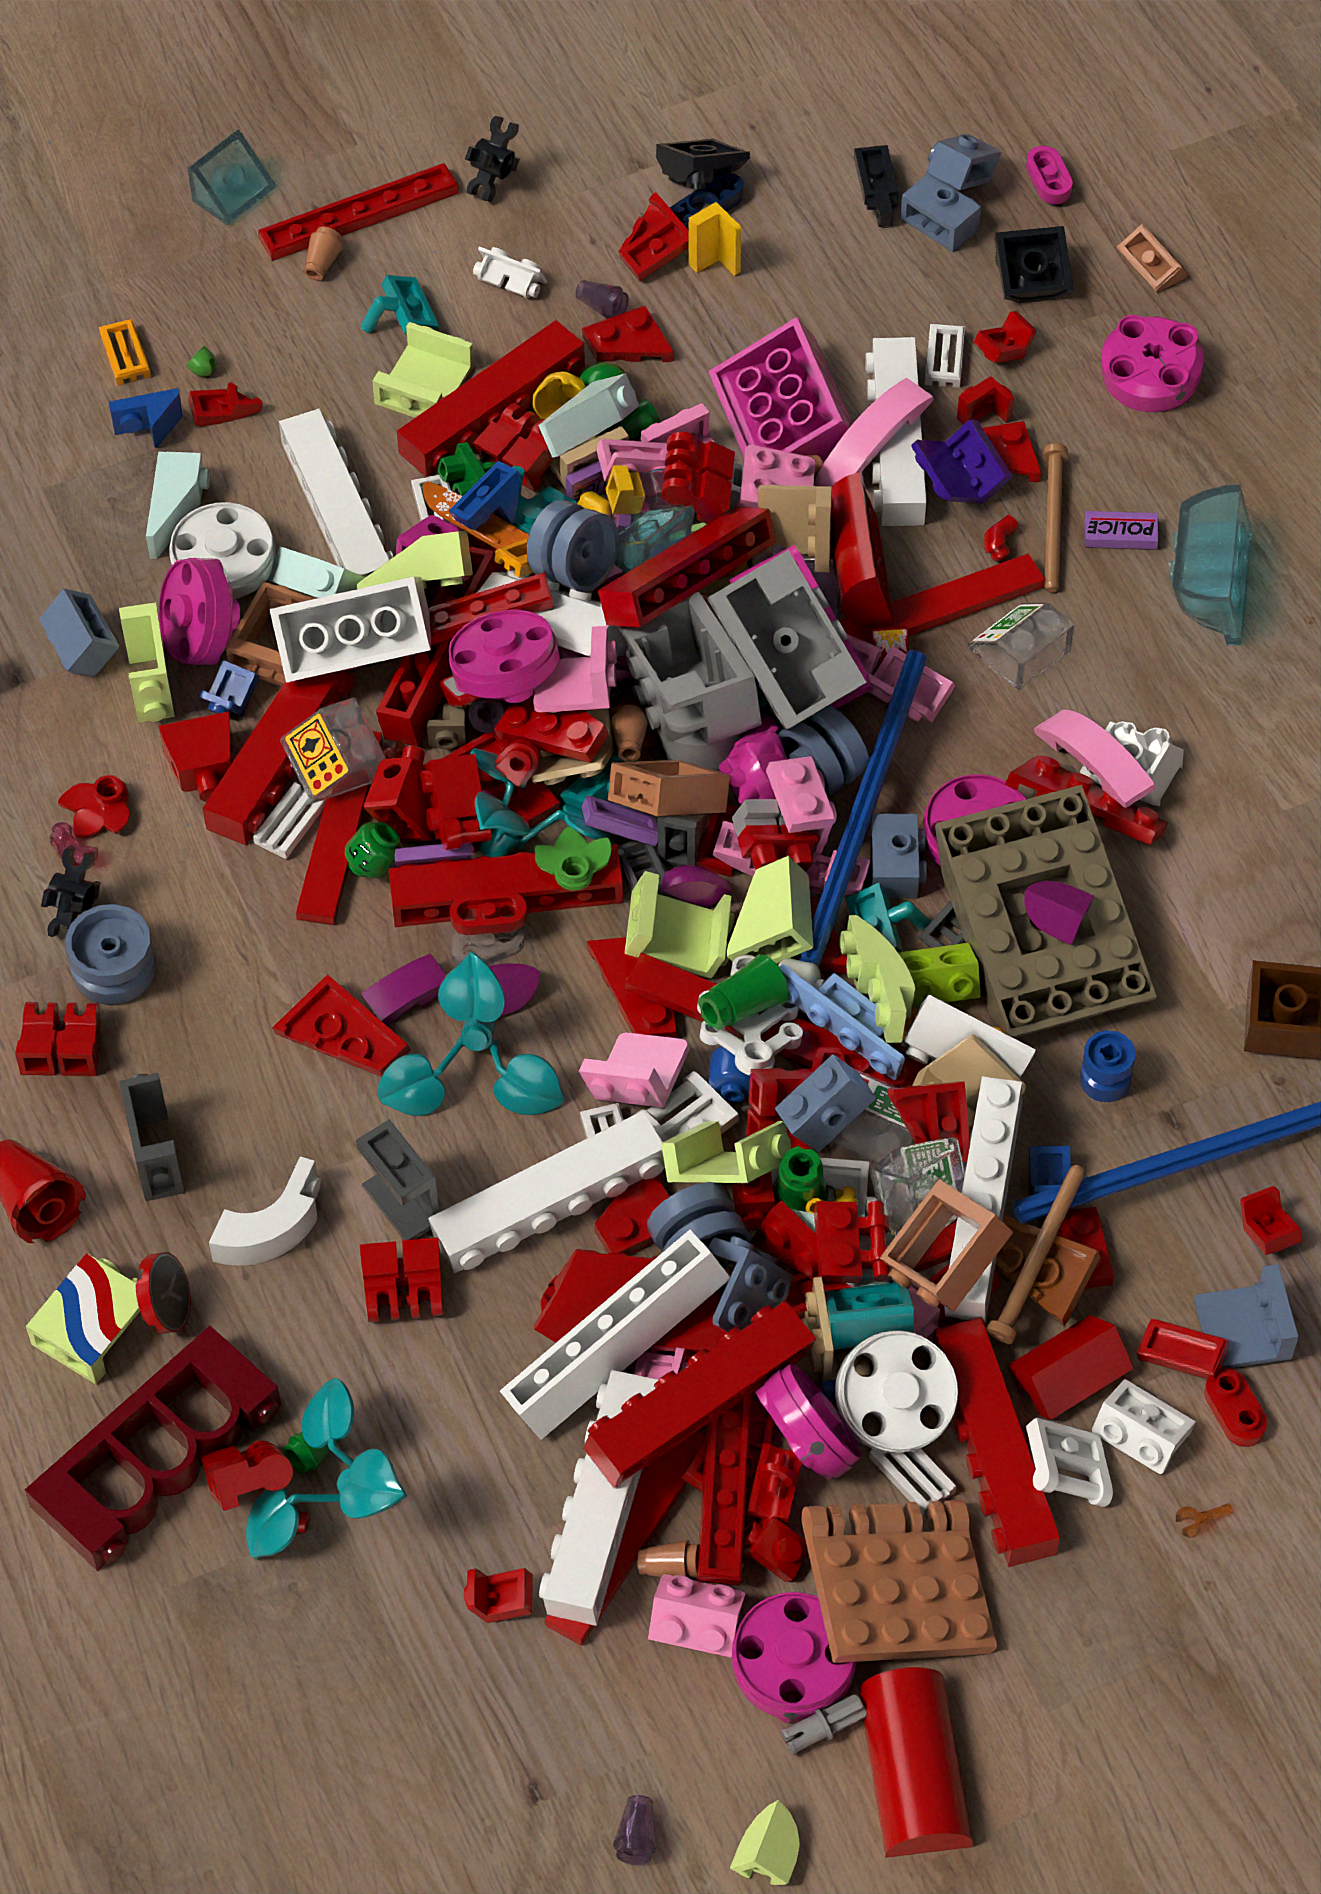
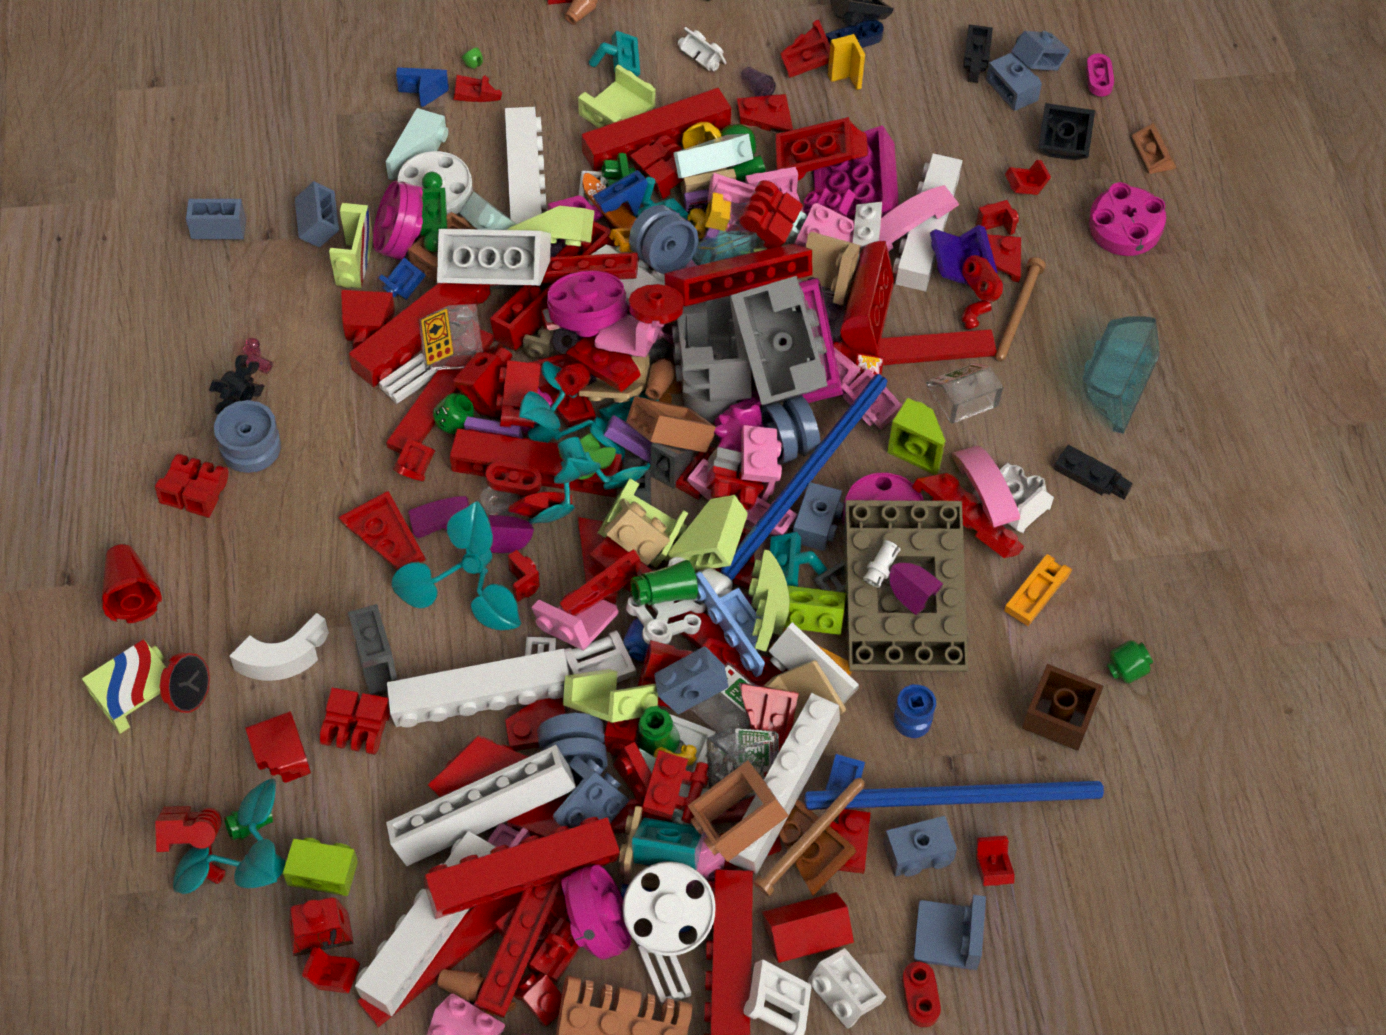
camera: 15 degrees right, 0 degrees up
(94, 809) = (284, 334): red plate -> none
(101, 1532) = (75, 841): dark red fence -> none
(131, 371) = (425, 53): light orange tile -> none
(157, 1162) = (215, 592): dark grey panel -> none
(246, 587) = (434, 209): none -> green plate
(317, 1340) = (279, 747): none -> red piece
(343, 925) = (414, 460): none -> red tile
(436, 1470) = (320, 866): none -> lime brick
(460, 1542) = (319, 925): none -> red torso
(537, 935) = (536, 503): none -> red slope
(546, 1030) = (526, 573): none -> red bracket
(575, 866) = (578, 464): none -> teal plant
(603, 633) = (656, 304): none -> red plate
(663, 1015) = (603, 585): none -> red wing
(680, 939) = (637, 531): none -> tan bracket
(695, 885) = (666, 498): magenta brick -> none
(722, 366) = (820, 146): none -> red slope
(774, 435) = (837, 201): none -> dark pink slope
(825, 454) = (867, 223): none -> white hinge
(944, 376) = (977, 193): white tile -> none
(989, 719) = (917, 437): none -> lime slope
(993, 488) = (980, 276): none -> red plate
(1009, 897) = (880, 566): none -> white pin
(1121, 530) = (1064, 330): medium lavender tile -> none
(1172, 1230) = (920, 846): none -> sand blue brick
(1183, 1349) = (896, 939): red tile -> none
(1204, 874) = (1037, 590): none -> light orange plate
(1220, 706) = (1092, 473): none -> black hinge

